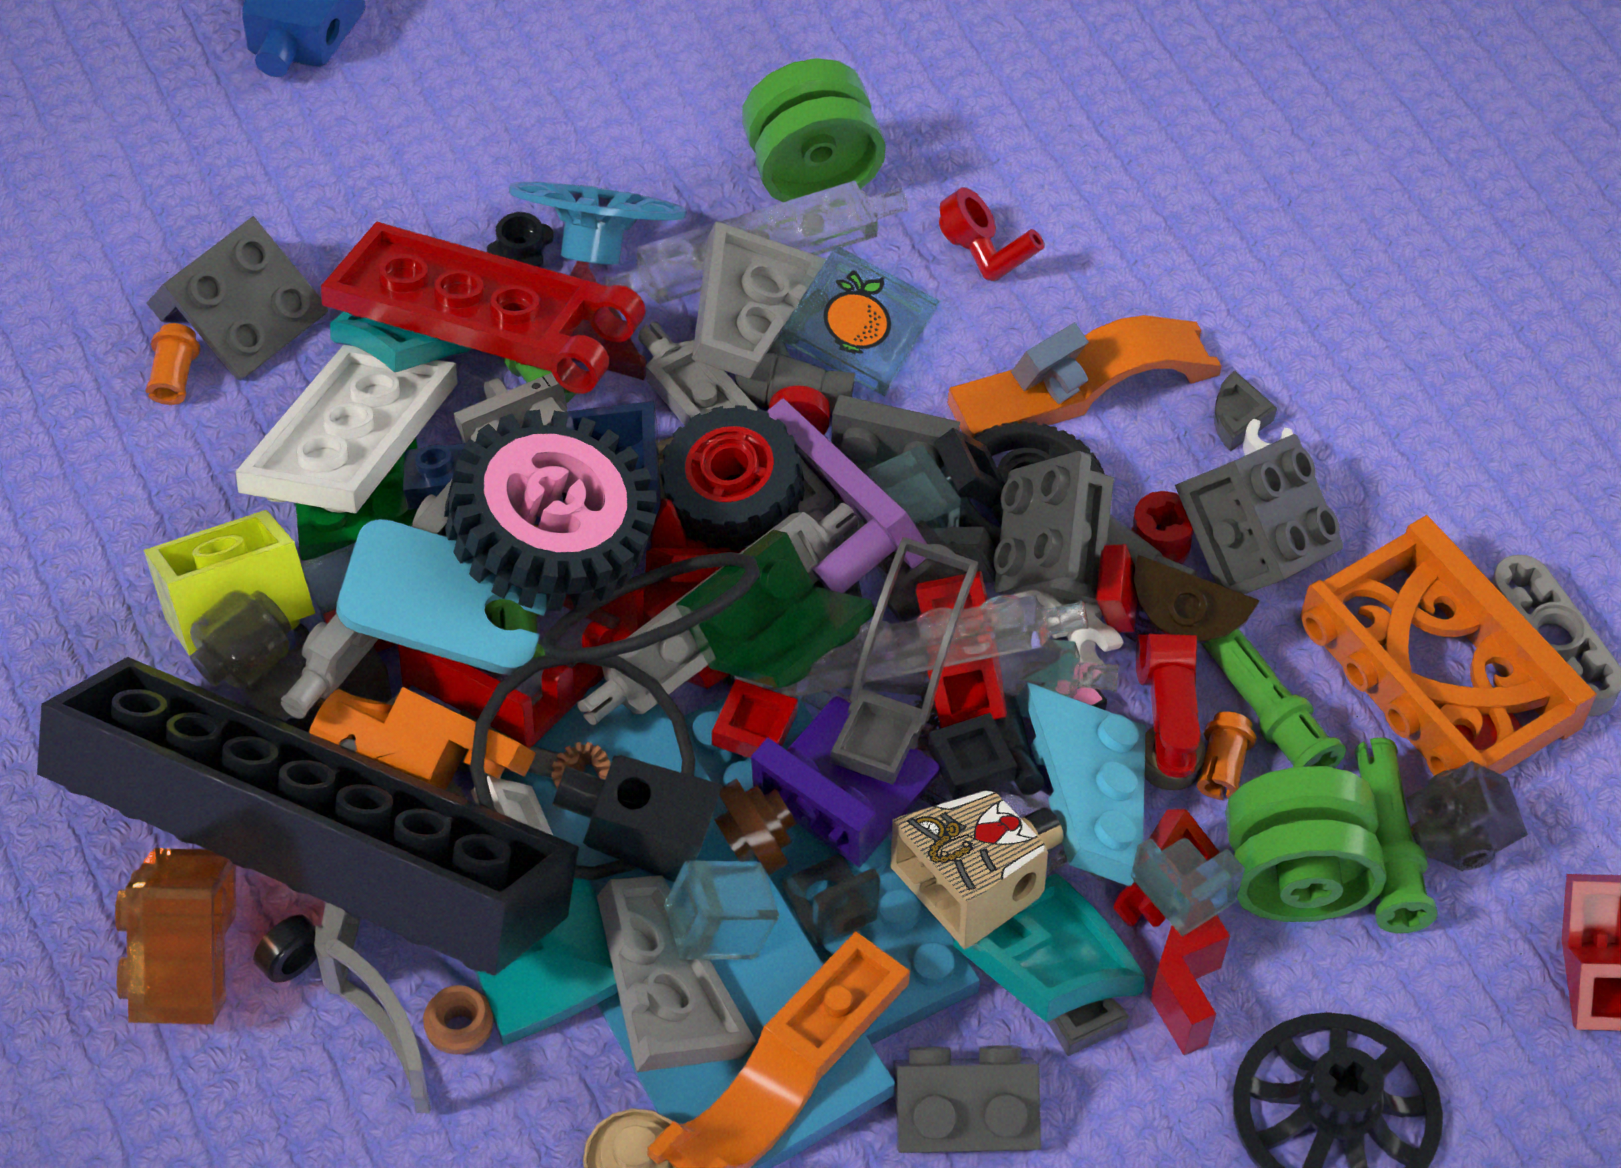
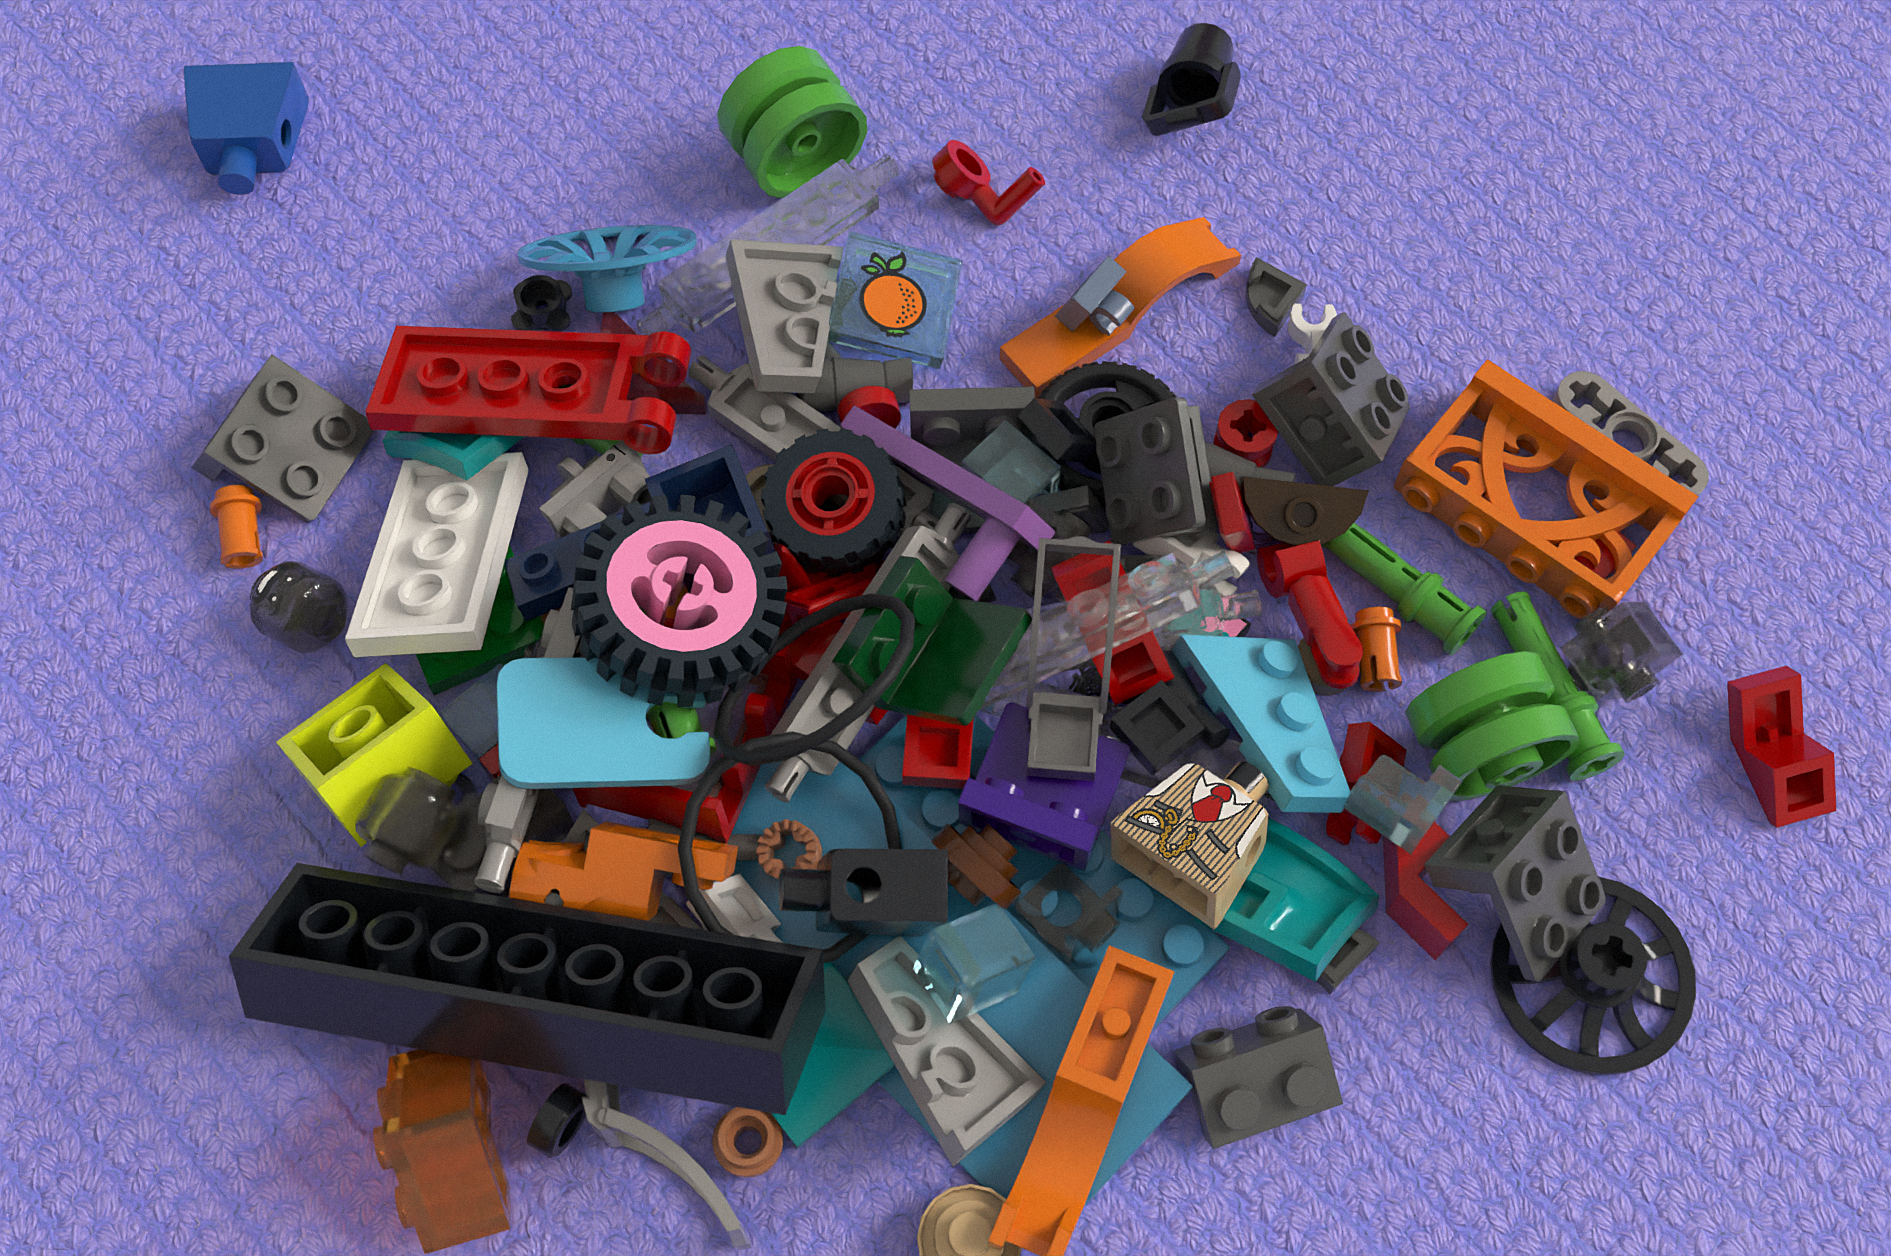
camera: 15 degrees left, 10 degrees up
(201, 442) = (296, 606): none -> clear smoke head
(1227, 191) = (1194, 82): none -> black piece
(1295, 986) = (1533, 865): none -> dark grey bracket

